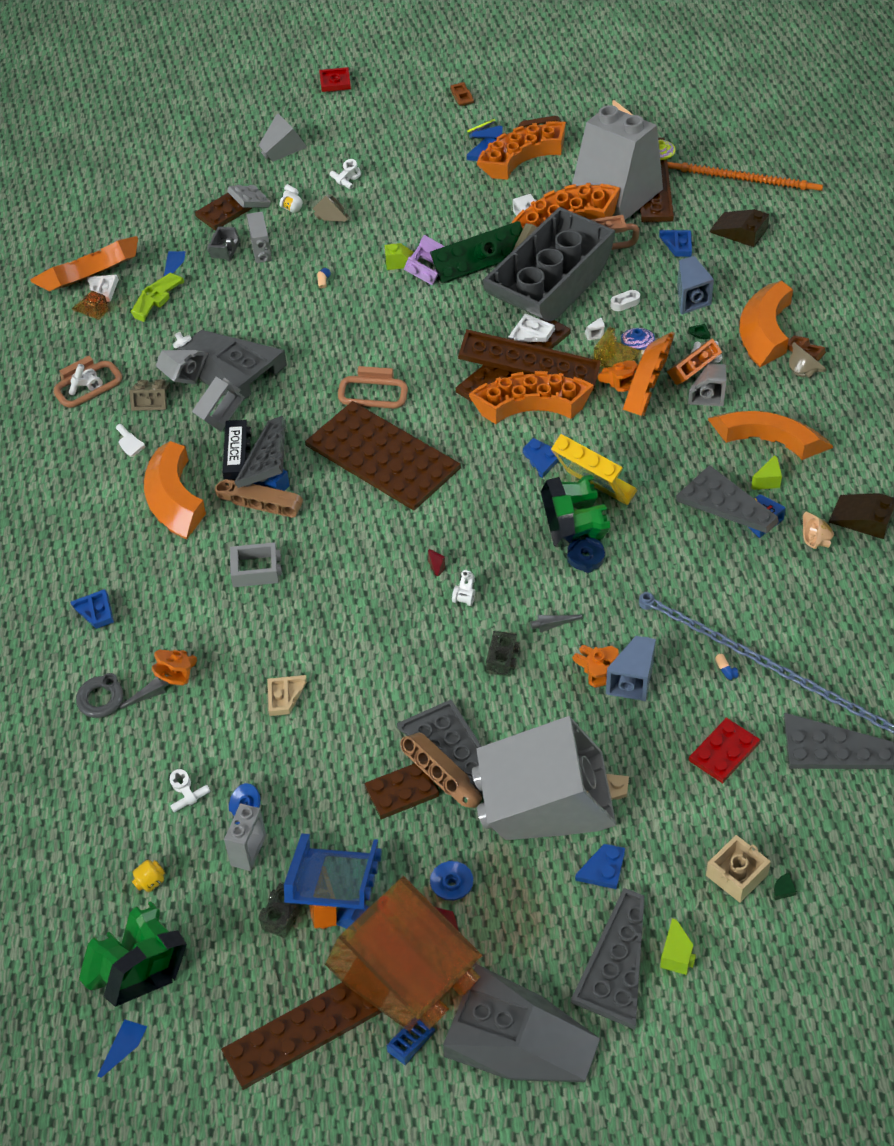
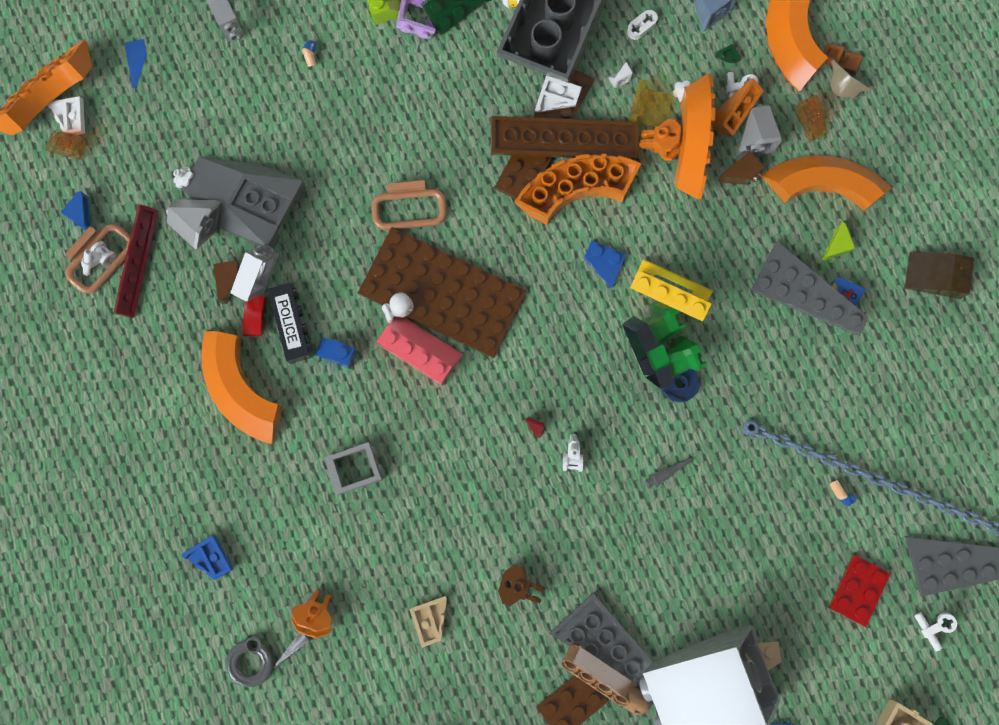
camera: 15 degrees left, 30 degrees up
(82, 346) = (78, 210): none -> blue slope
(117, 389) = (135, 261): none -> dark red plate
(129, 442) = (171, 330): white piece -> none
(149, 395) = (172, 261): dark tan bracket -> none
(155, 295) = (132, 117): lime plate -> none
(188, 419) = (225, 277): none -> reddish brown slope
(205, 442) = (253, 316): none -> red slope
(223, 243) = (184, 23): flat silver window -> none
(260, 498) = (331, 379): medium nougat piece -> none
(266, 456) = (326, 340): dark grey wing -> none
(339, 450) = (399, 306): none -> white piece
(345, 490) = (419, 349): none -> coral slope
(377, 679) = (519, 587): none -> reddish brown hinge
(502, 653) = (623, 527): clear smoke brick -> none
(596, 663) = (723, 522): orange hinge -> none
(632, 670) = (762, 524): sand blue slope -> none
(637, 338) = (664, 83): dish -> none
(689, 410) = (743, 171): none -> reddish brown slope
(765, 382) = (812, 118): none -> clear orange slope
(799, 792) = (930, 631): none -> white piece
(816, 531) = (898, 310): light nougat hat -> none

